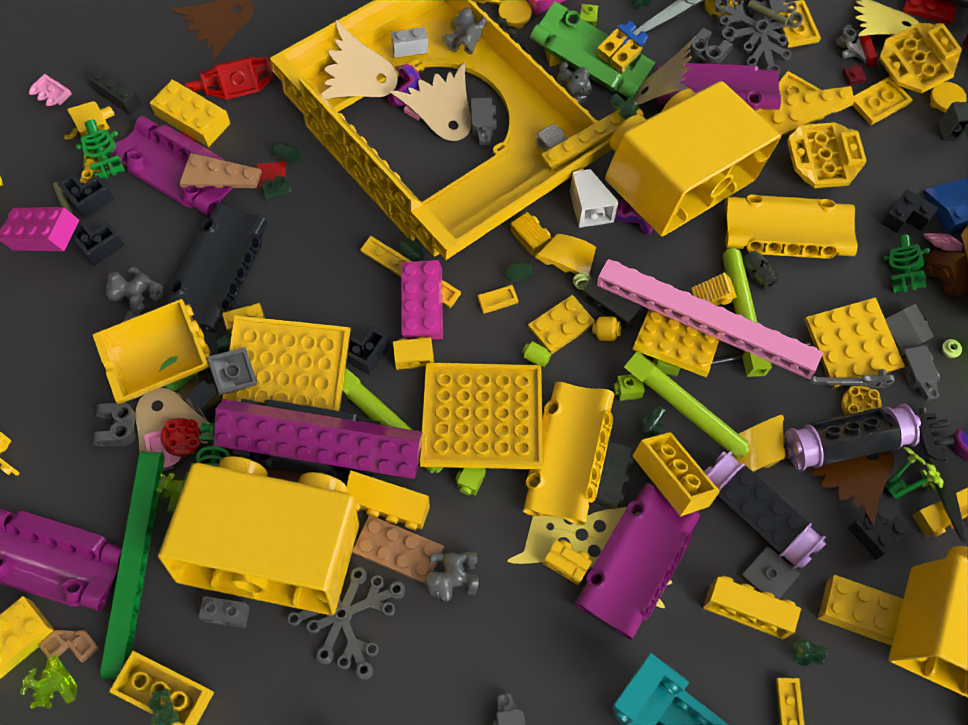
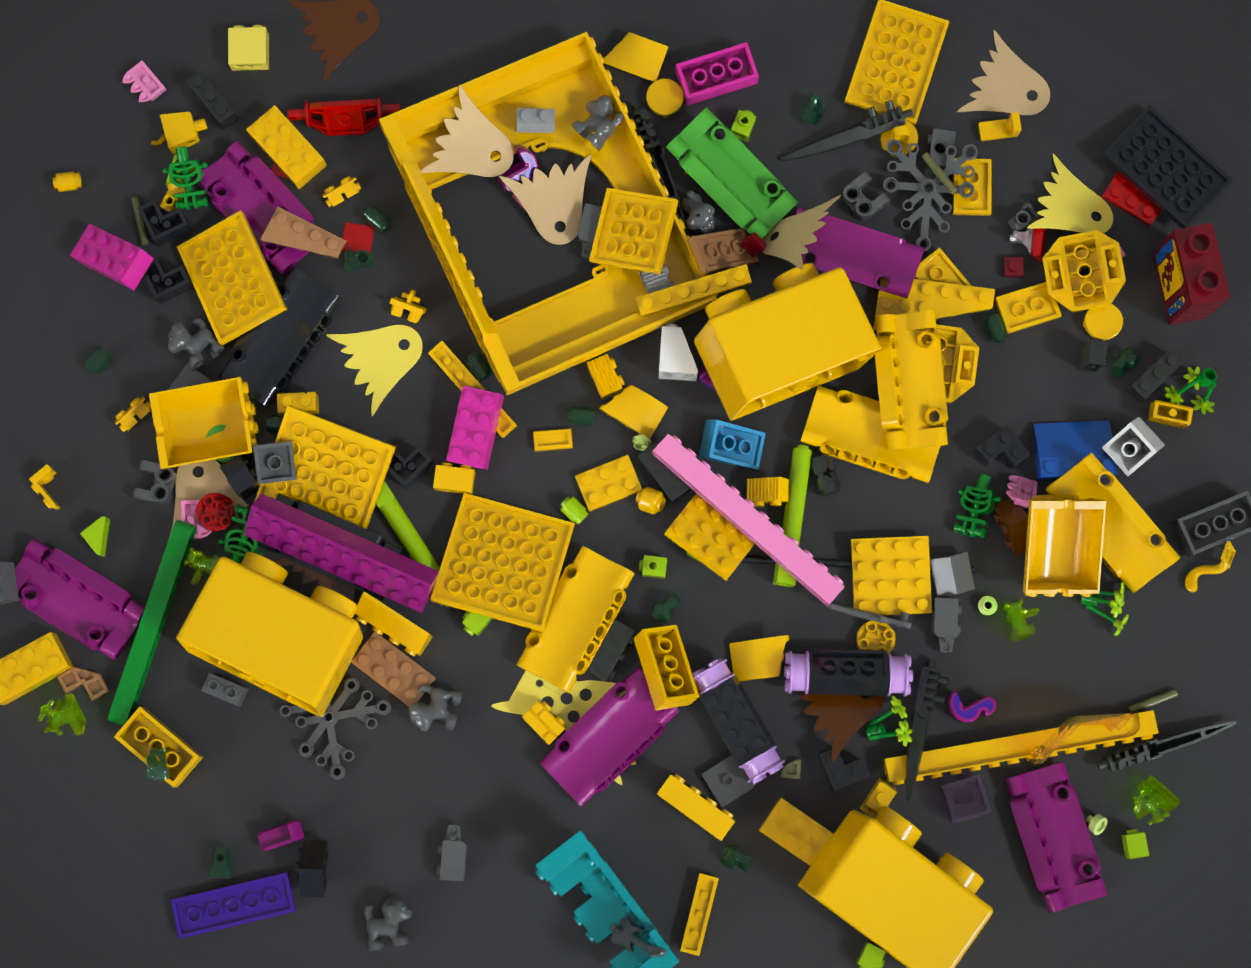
camera: 15 degrees right, 15 degrees up
(38, 326) = (97, 360): none -> clear green brick
(62, 488) = (97, 535): none -> lime slope
(76, 371) = (137, 408): none -> yellow hinge
(140, 47) = (248, 48): none -> light yellow piece
(158, 225) = (231, 278): none -> yellow plate
(242, 142) = (334, 193): none -> yellow hinge
(315, 266) = (380, 357): none -> light yellow piece
(339, 217) = (399, 305): none -> yellow hips
(522, 104) = (633, 231): none -> yellow plate
(596, 103) = (721, 250): none -> medium nougat plate
(622, 47) = (769, 182): yellow hips -> none
(626, 108) = (733, 276): clear green plate -> none
(630, 93) = (753, 244): none -> dark red plate
(666, 262) = (731, 444): none -> dark azure slope
(686, 404) = (668, 559): lime brick -> none
(813, 170) = (911, 380): none -> yellow panel
(830, 549) = (792, 770): none -> olive tile
(861, 121) = (996, 328): none -> clear green brick
(928, 548) = (879, 796): none -> yellow torso

